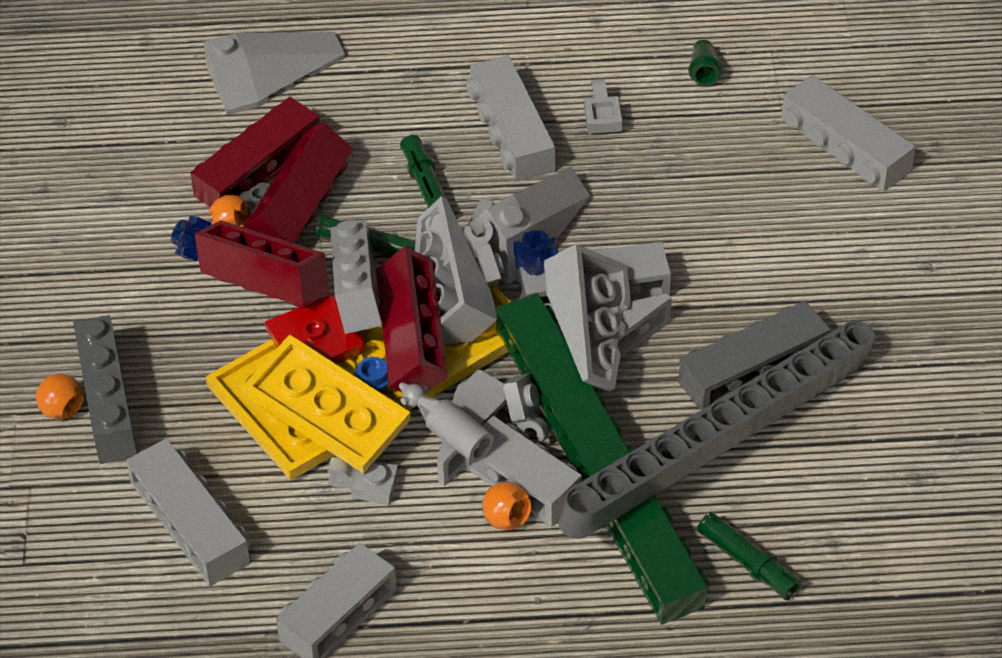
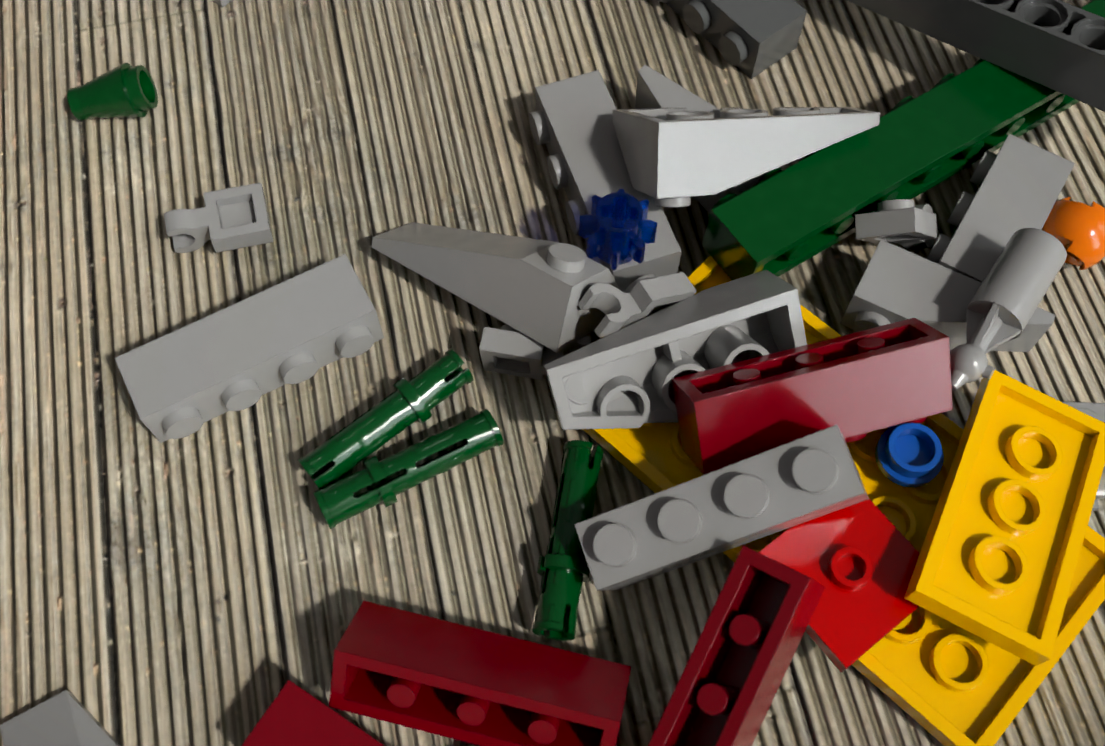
camera: 100 degrees left, 15 degrees up
(464, 180) = (386, 419): none -> dark green pin

